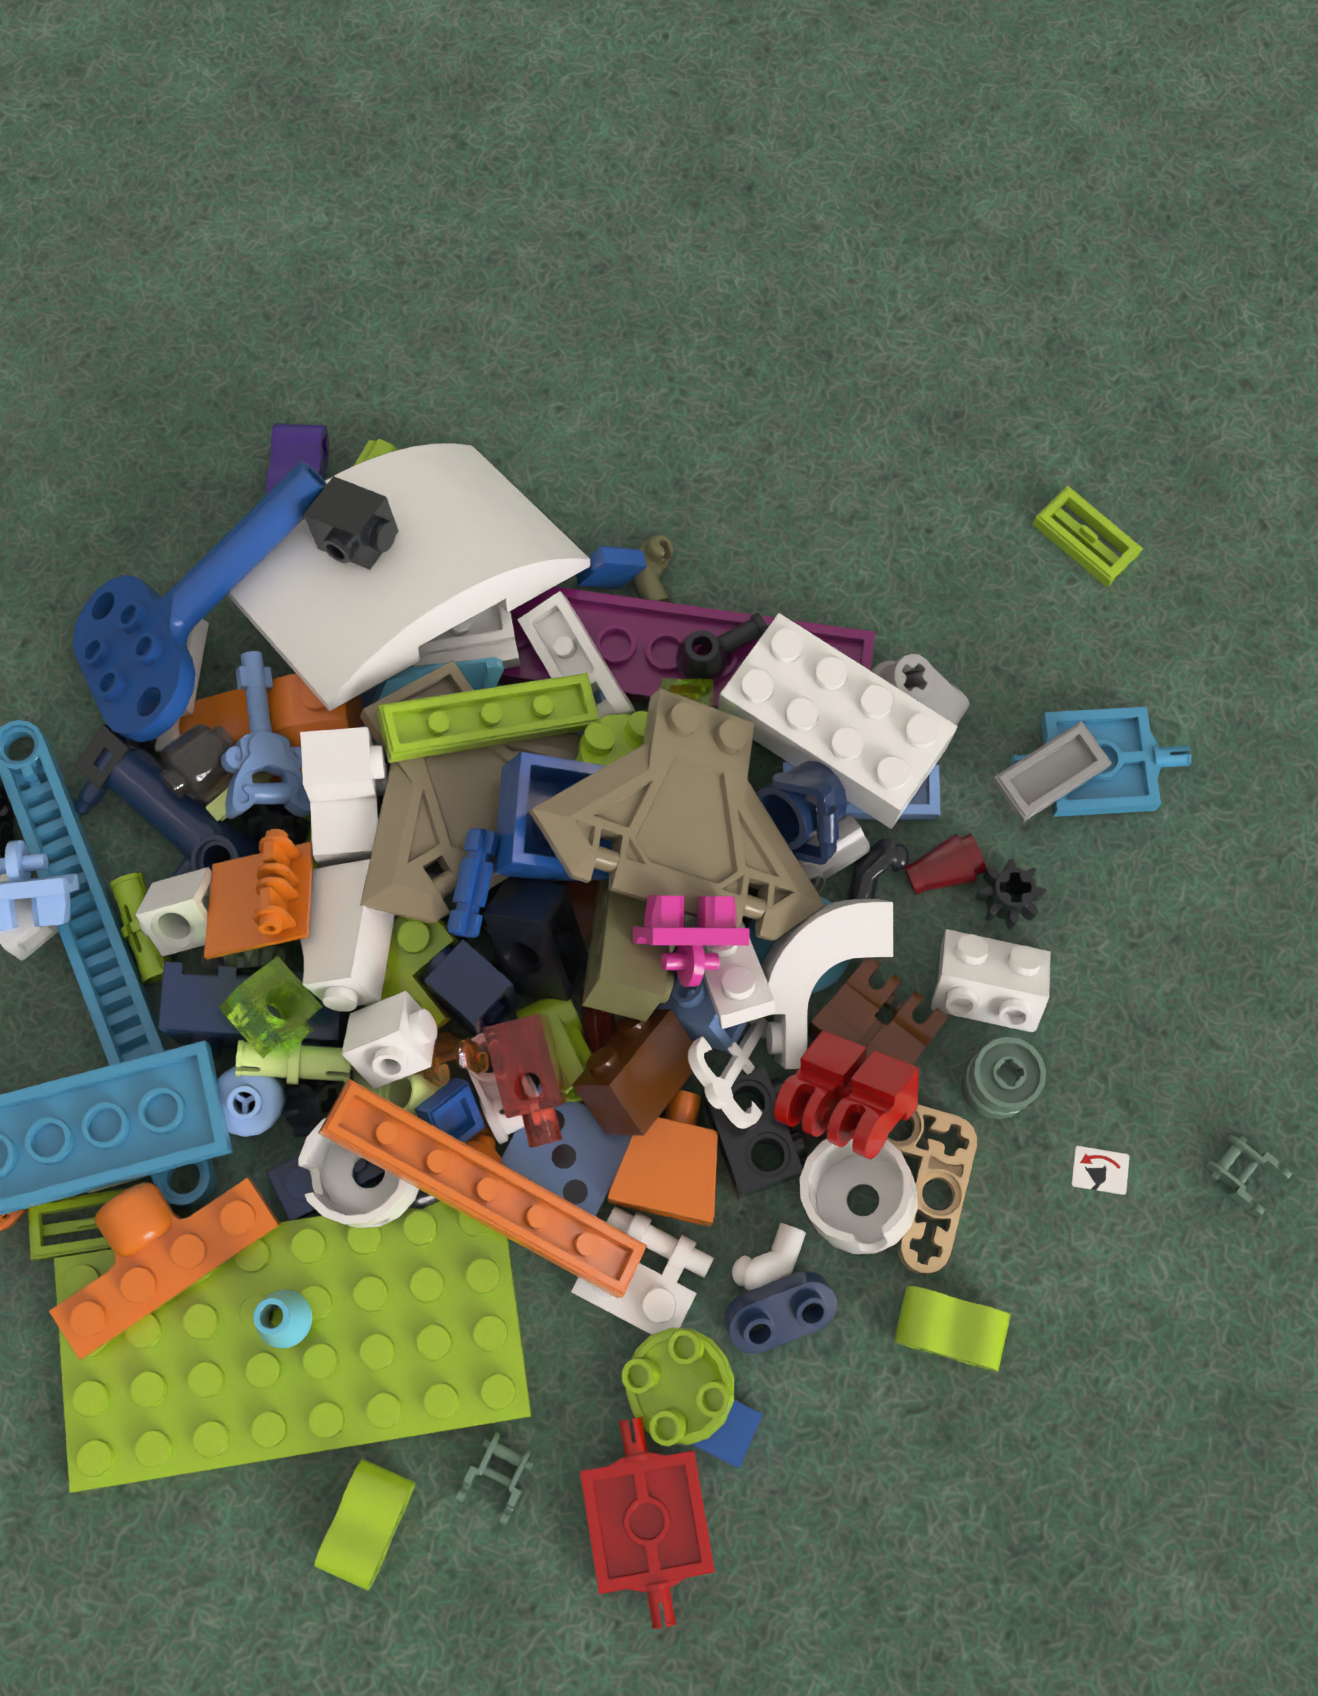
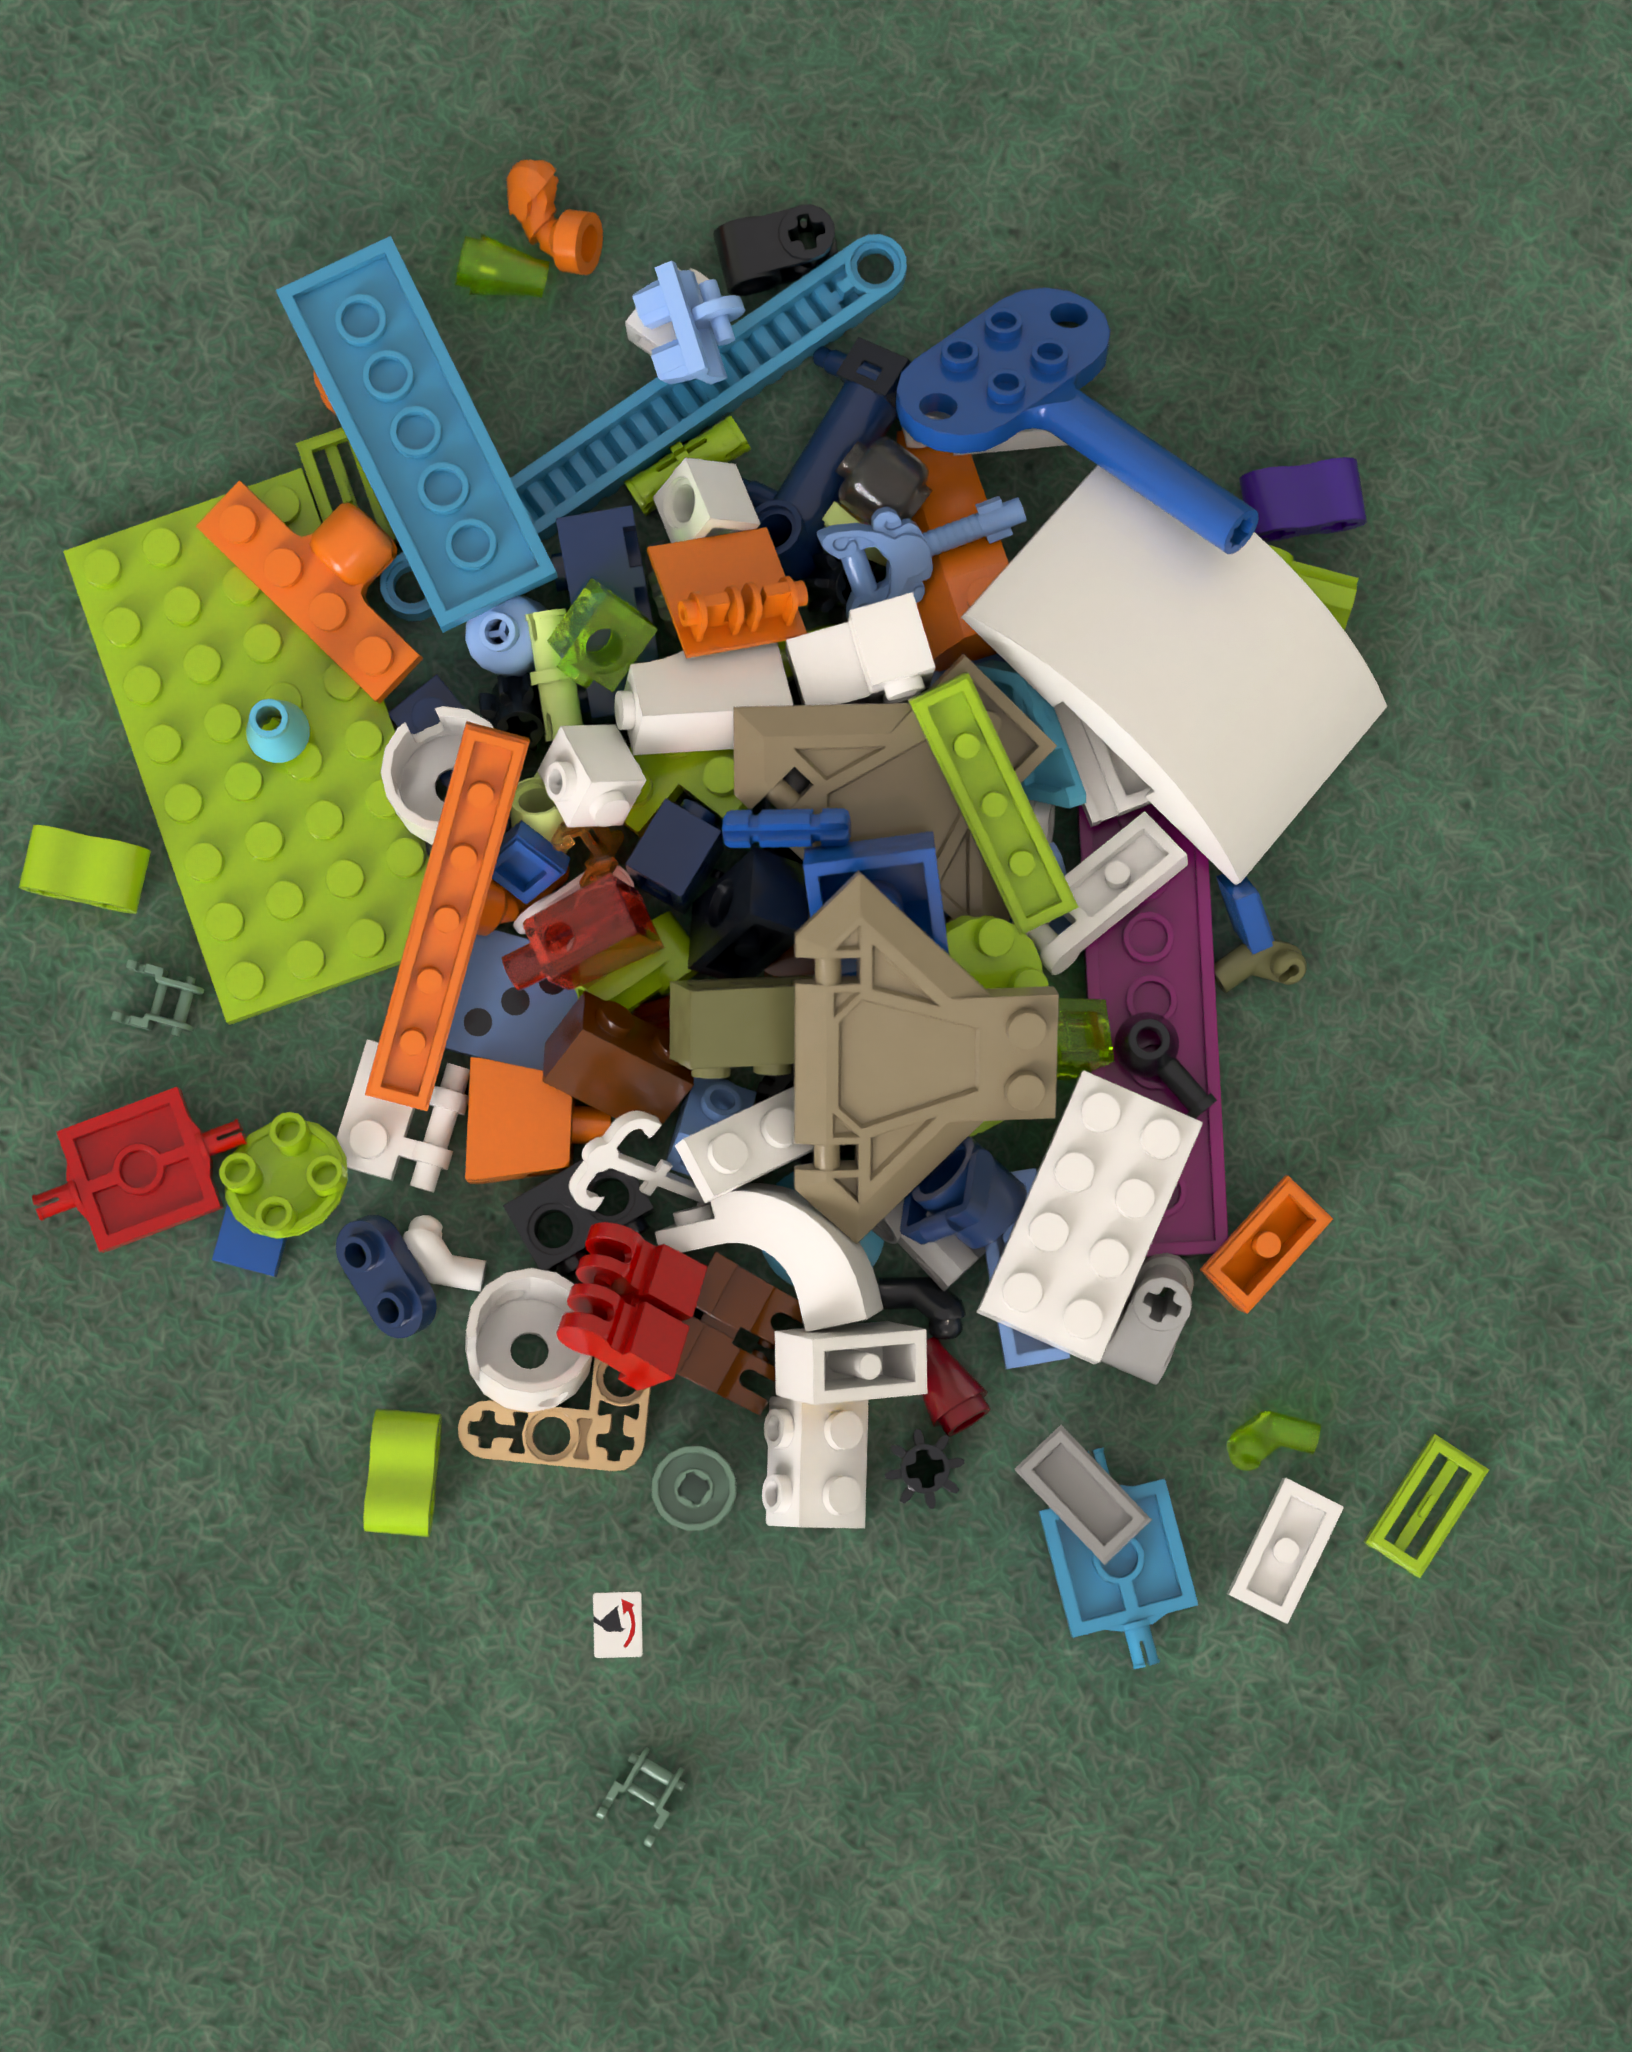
camera: 80 degrees right, 10 degrees up
(351, 523) = (1191, 588): black brick -> none
(666, 927) = (761, 1057): dark pink hips -> none
(875, 603) = (1265, 1245): none -> orange slope
(923, 929) = (851, 1362): none -> white brick
(1016, 637) = (1268, 1432): none -> clear neon green arm
(1110, 638) = (1285, 1550): none -> white plate

